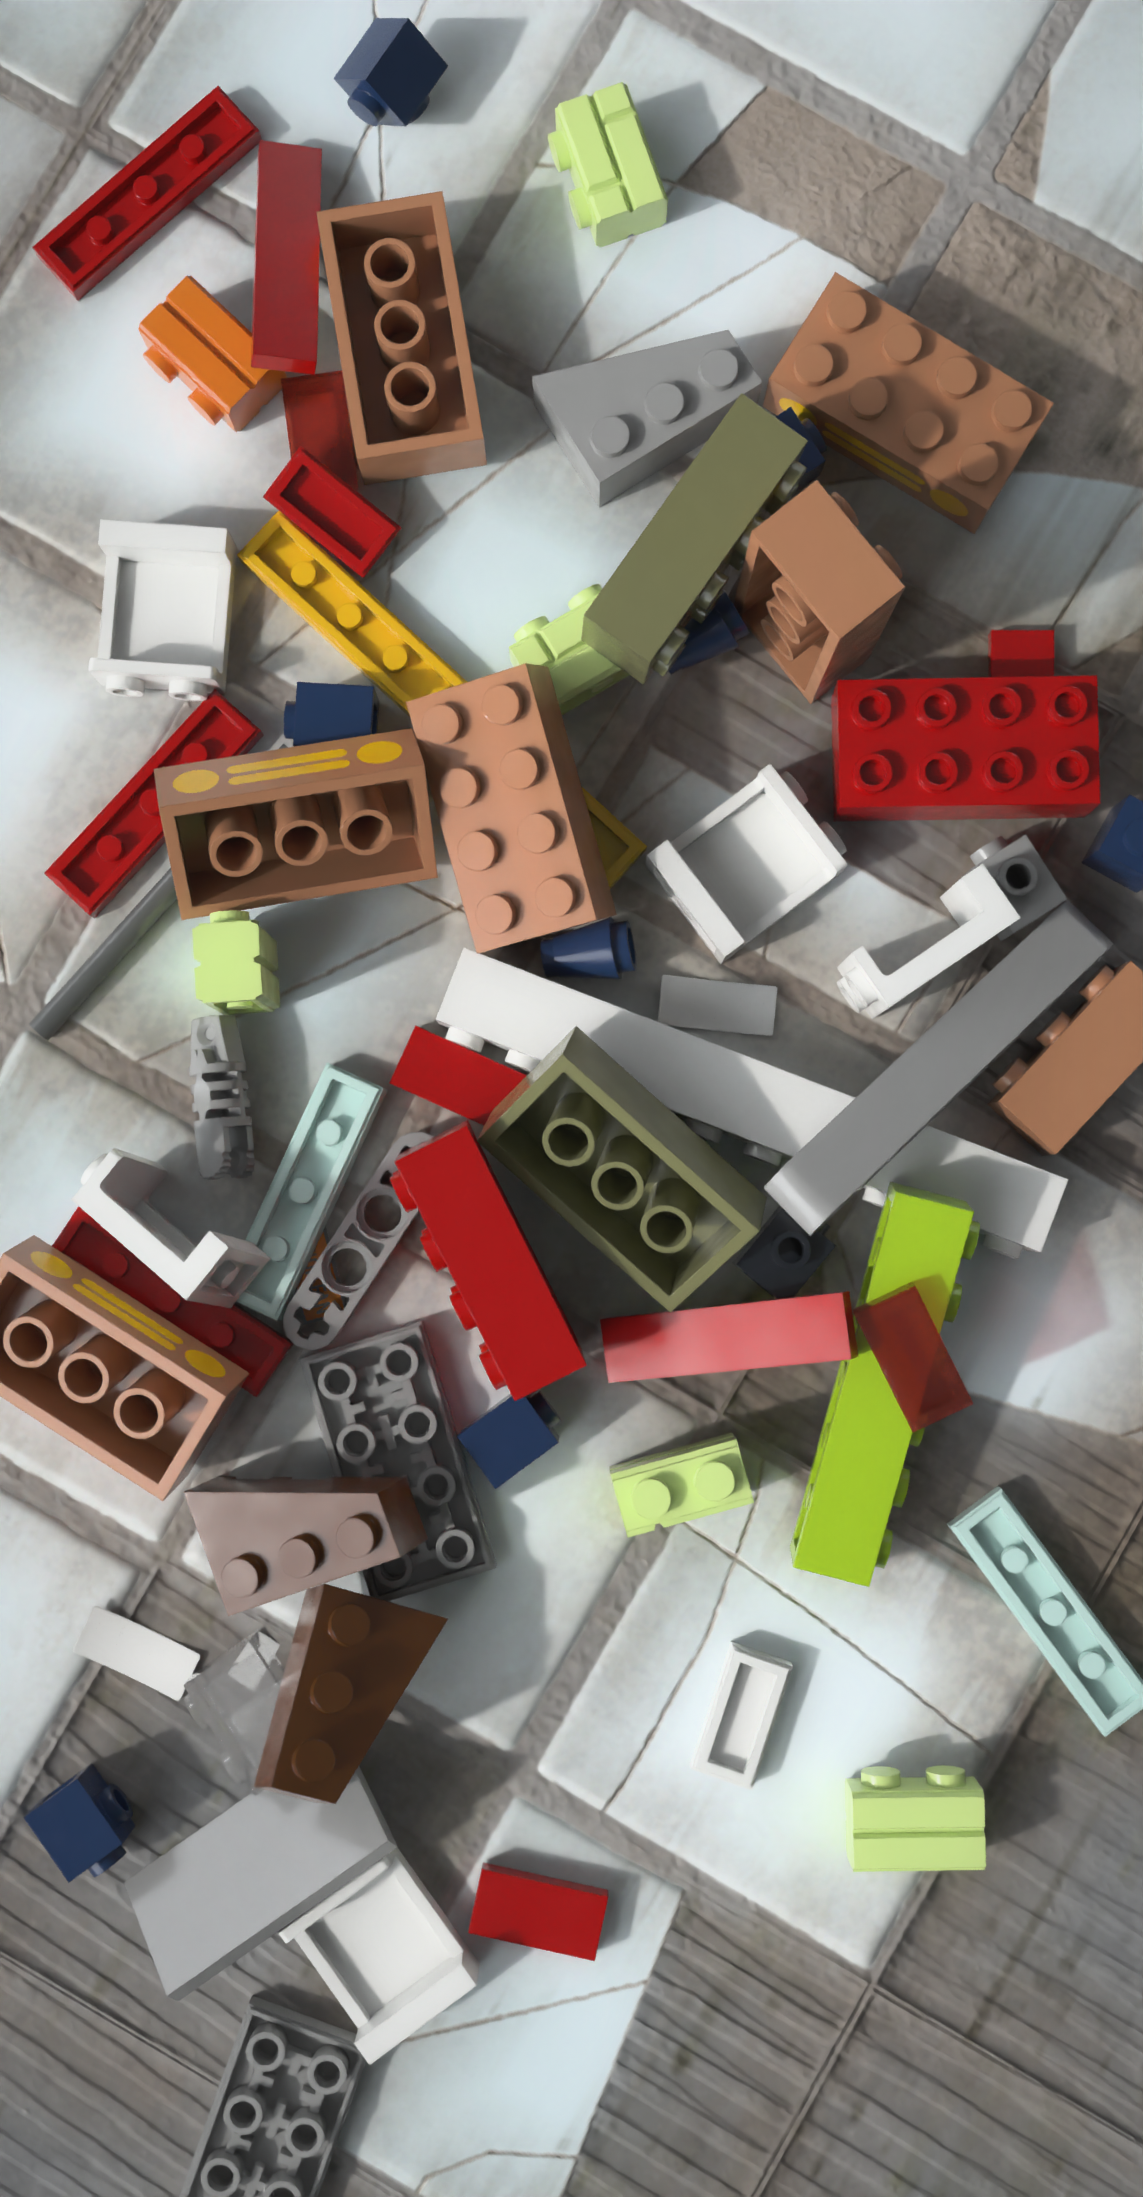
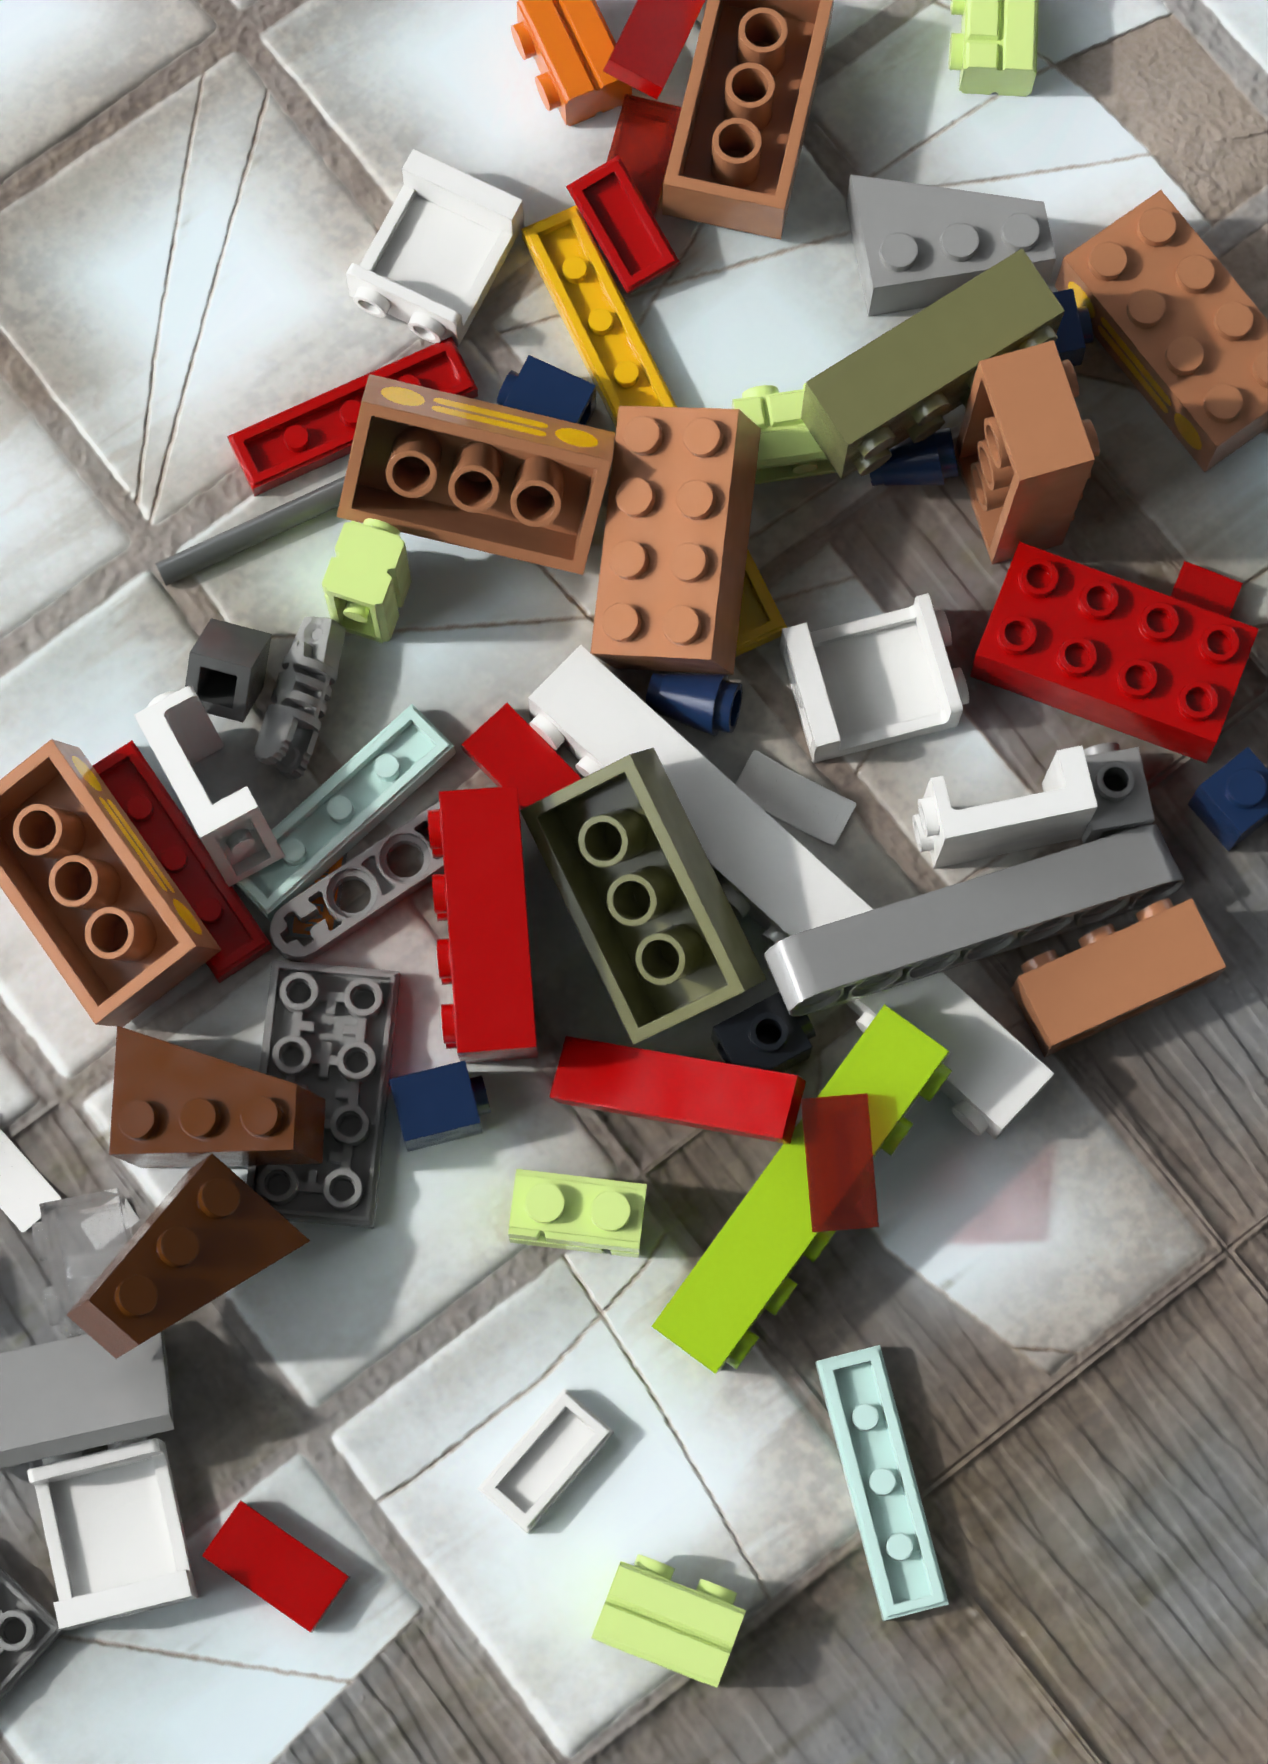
camera: 15 degrees right, 10 degrees down
(140, 1104) = (228, 668): none -> dark grey brick

